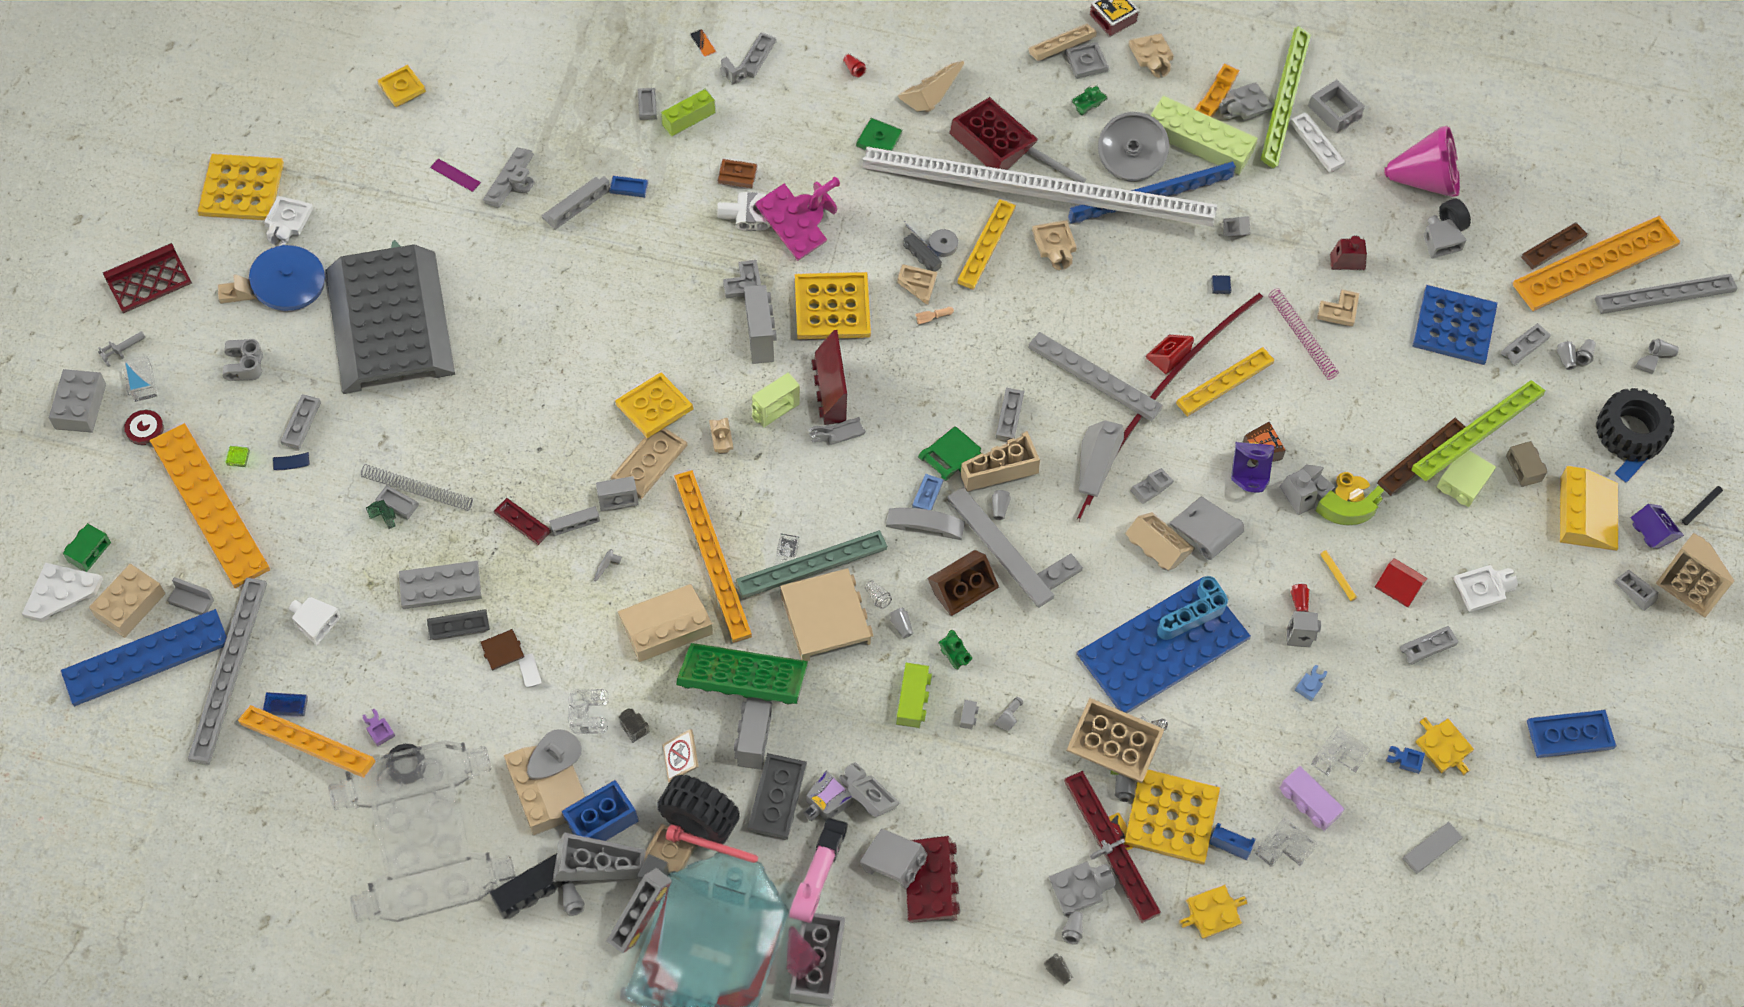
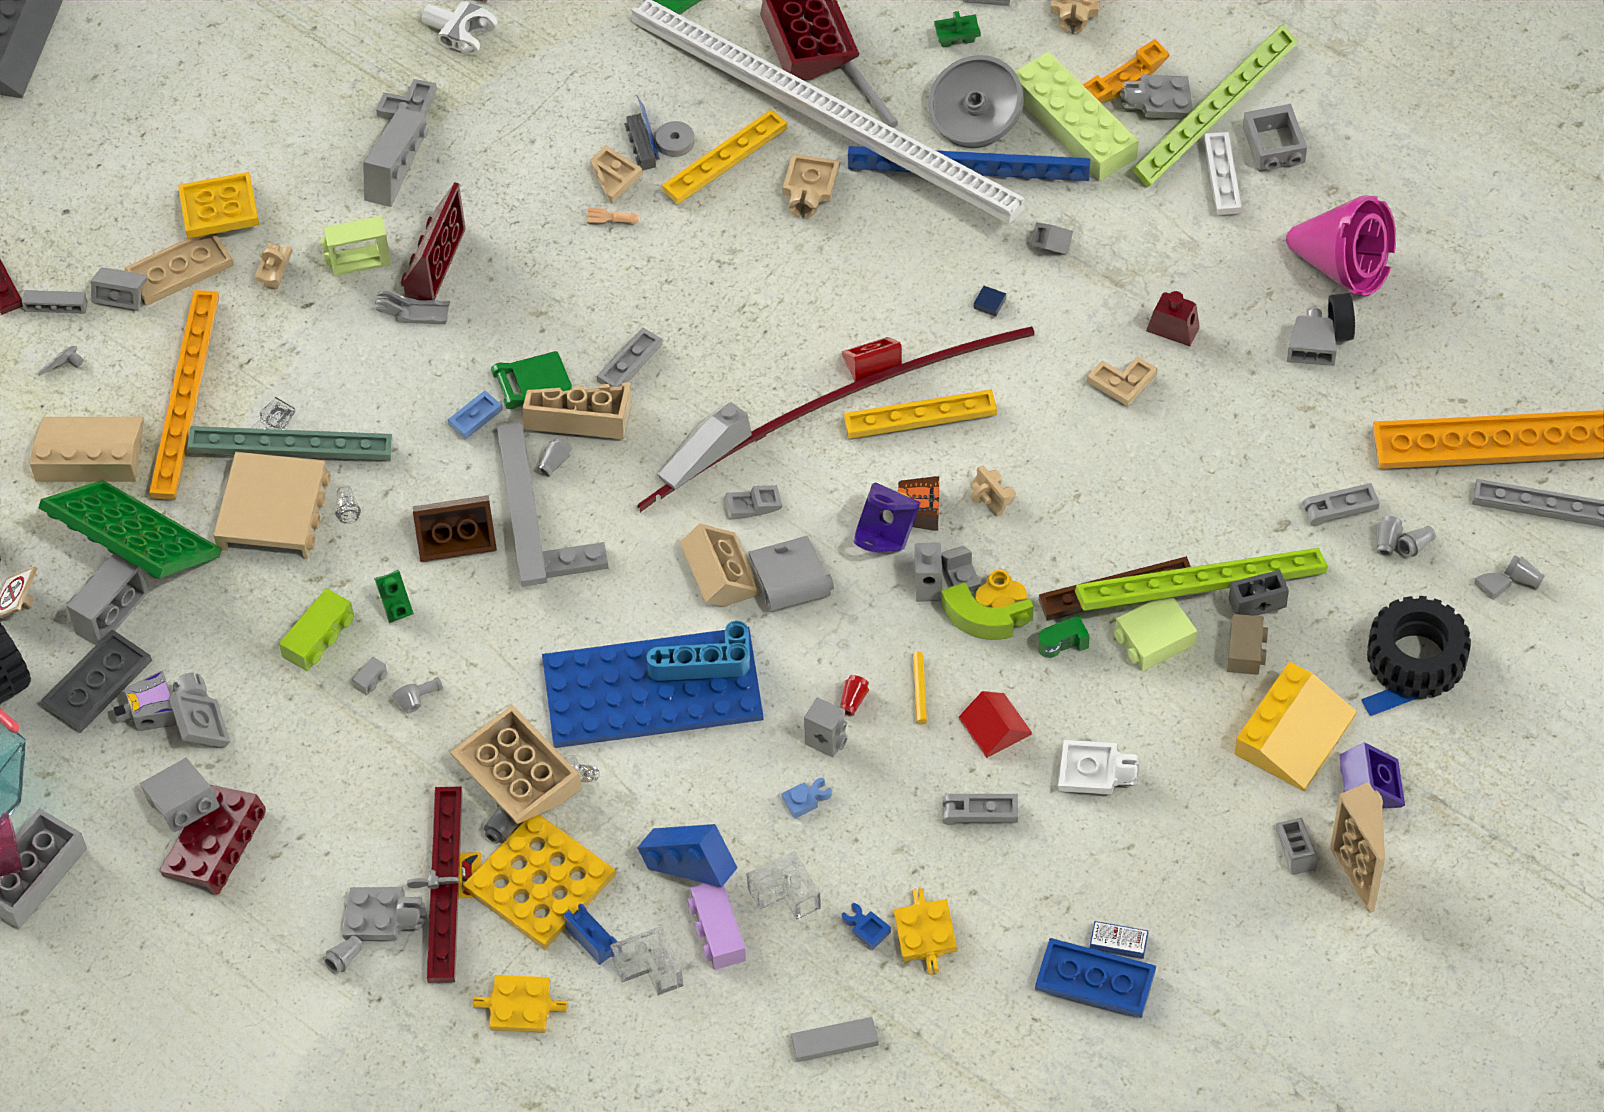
camera: 30 degrees right, 5 degrees down
(795, 220) = (511, 49): dark pink plate -> none
(826, 852) = (113, 756): bright pink piece -> none
(841, 297) = (489, 153): yellow piece -> none
(901, 621) = (355, 543): light grey cone -> none
(925, 520) = (456, 444): light grey slope -> none
(1057, 967) = (297, 991): clear smoke cone -> none
(1095, 376) = (762, 353): light grey plate -> none
(1268, 756) = (689, 853): none -> blue wedge
(1288, 318) = (1047, 387): piece -> none
(1304, 418) = (988, 490): none -> tan hips
(1412, 500) = (1062, 637): none -> green leg
(1465, 319) = (1266, 464): blue piece -> none
(1517, 426) = (1259, 594): none -> dark grey brick
(1554, 245) = (1458, 399): reddish brown plate -> none
(1568, 700) = (1119, 939): none -> tile
(1702, 505) = (1454, 778): black bar -> none

